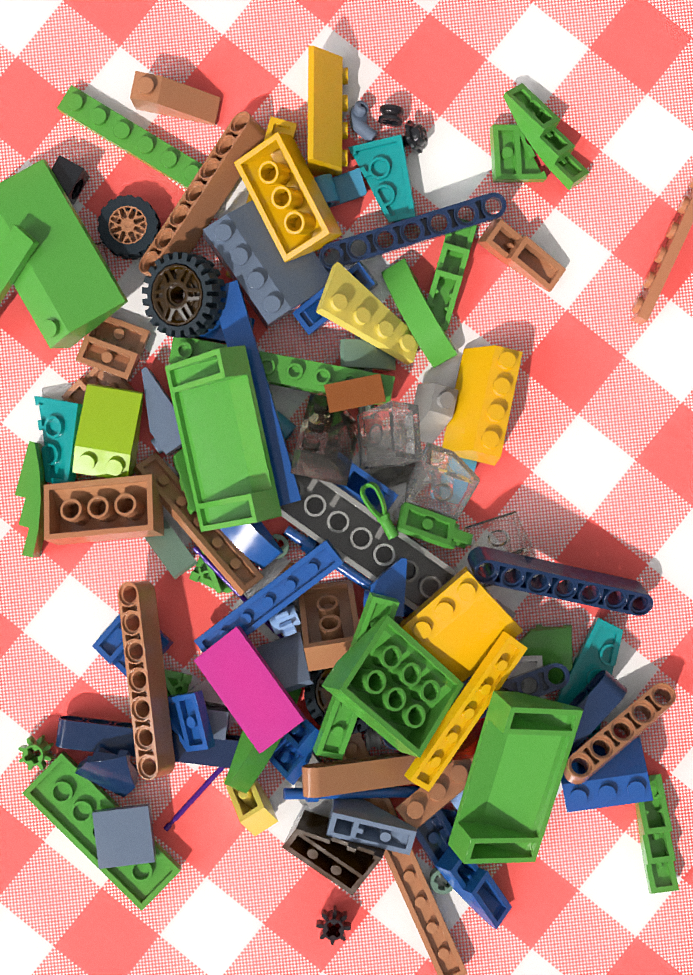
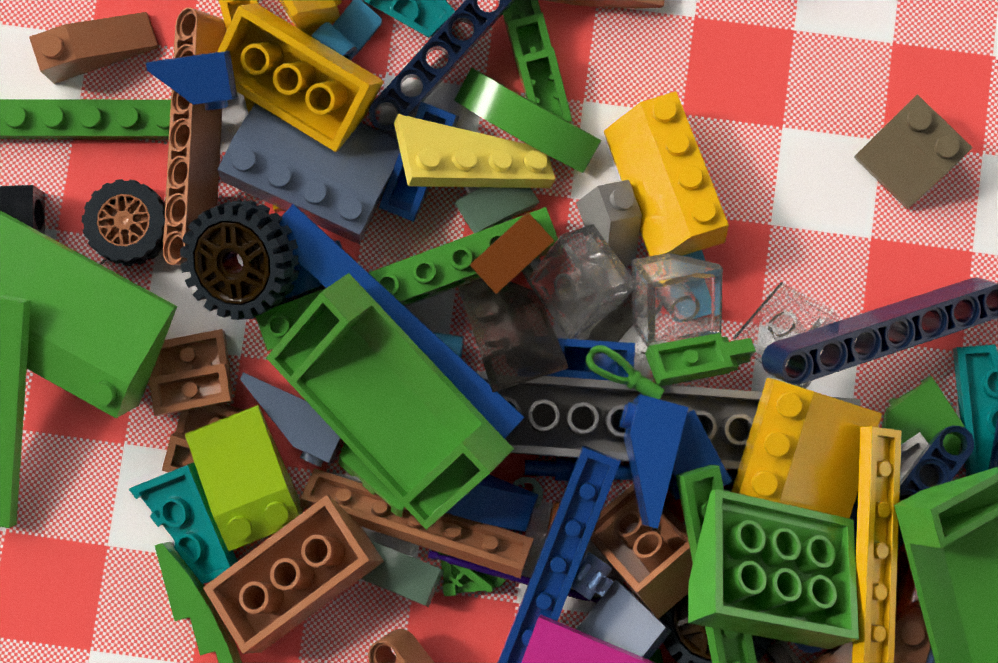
camera: 25 degrees left, 5 degrees down
(225, 163) = (199, 78): none -> blue slope
(368, 564) = (651, 447): none -> blue slope
(648, 479) = (912, 152): none -> dark tan slope

